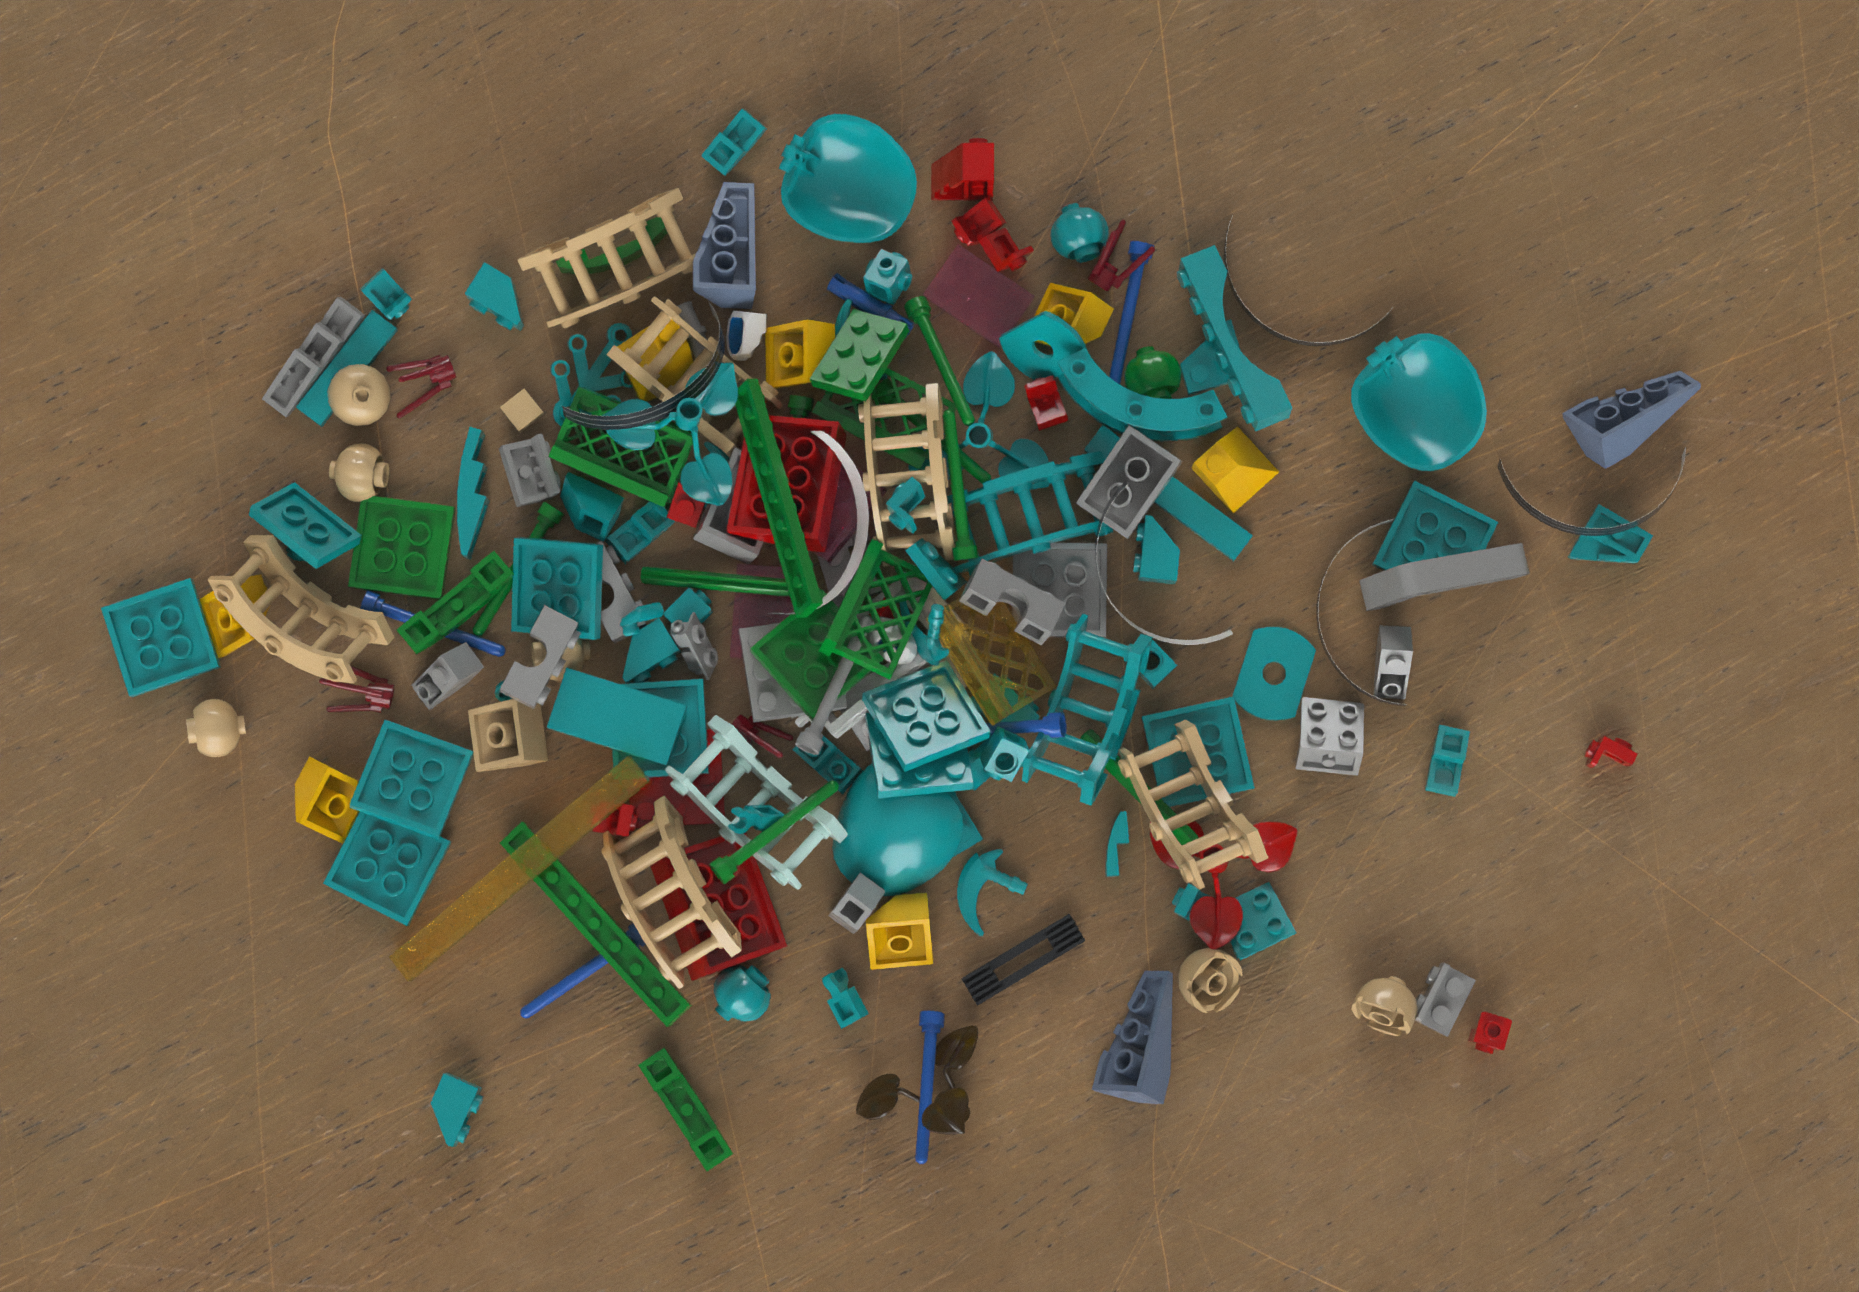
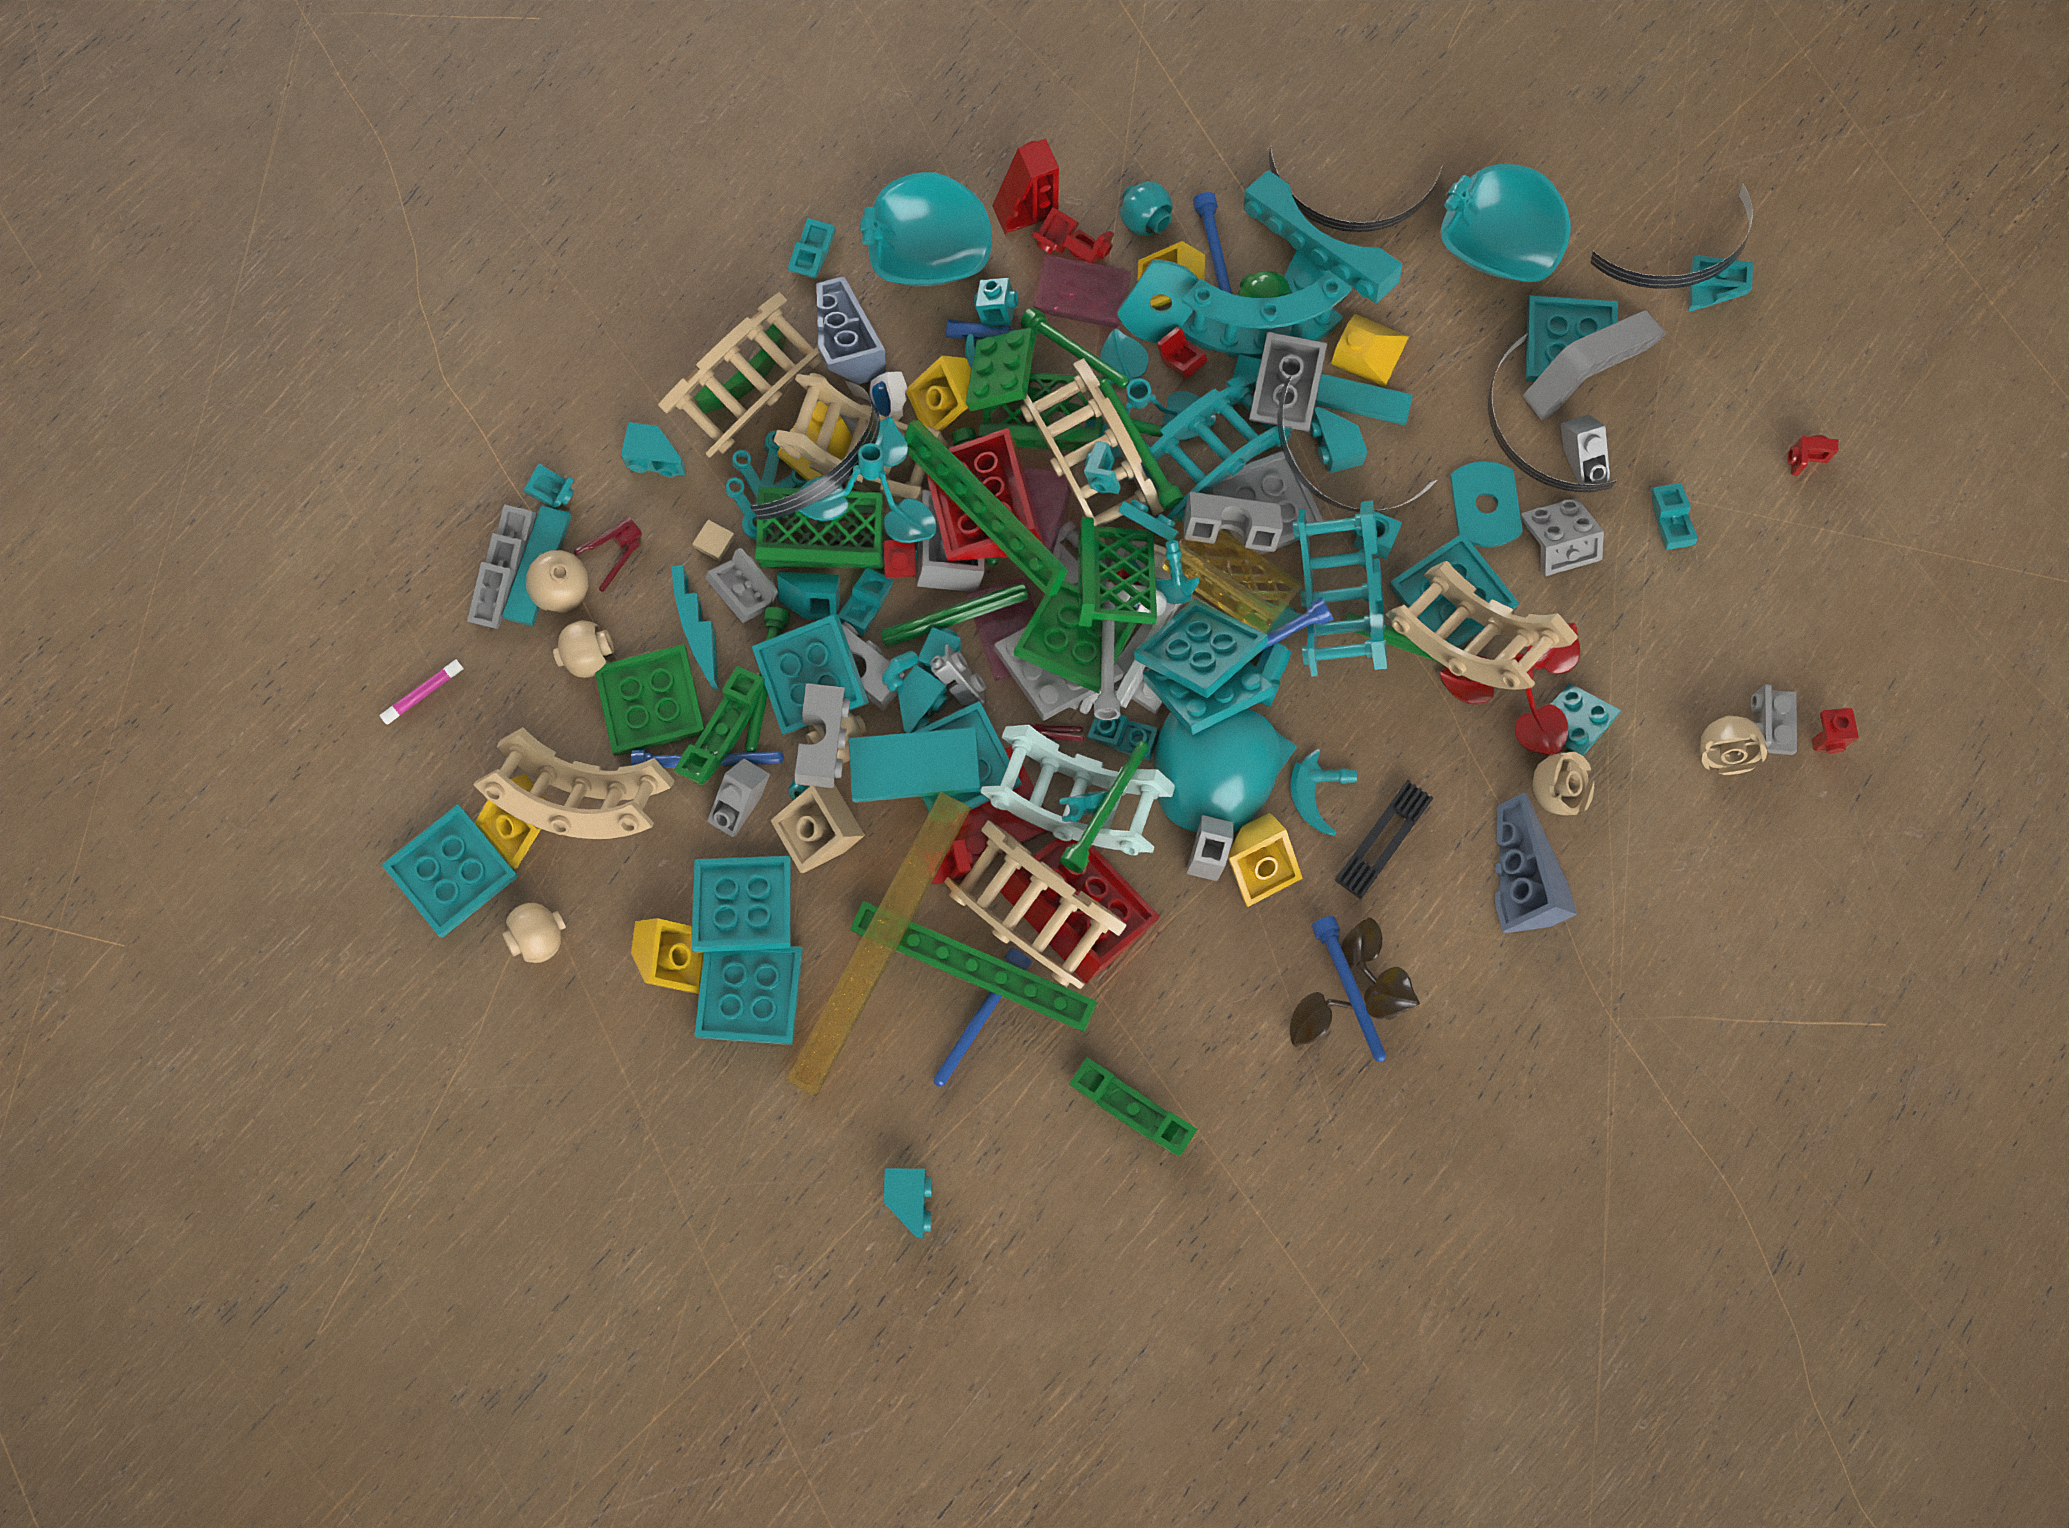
camera: 25 degrees left, 10 degrees down
(195, 451) = (421, 692): none -> dark pink bar
(304, 526) = (550, 712): teal plate -> none
(378, 694) = (678, 838): dark red plant -> none
(741, 993) = (1138, 976): teal plant -> none
(844, 1002) = (1240, 945): teal plate -> none
(862, 517) = (1058, 491): white sticker -> none
(1004, 742) = (1298, 652): teal brick -> none
(1104, 273) = (1184, 228): dark red plant -> none
(1118, 836) = (1418, 694): teal slope -> none
(1186, 899) = (1508, 724): teal bracket -> none
(1620, 424) = (1681, 183): sand blue wedge -> none

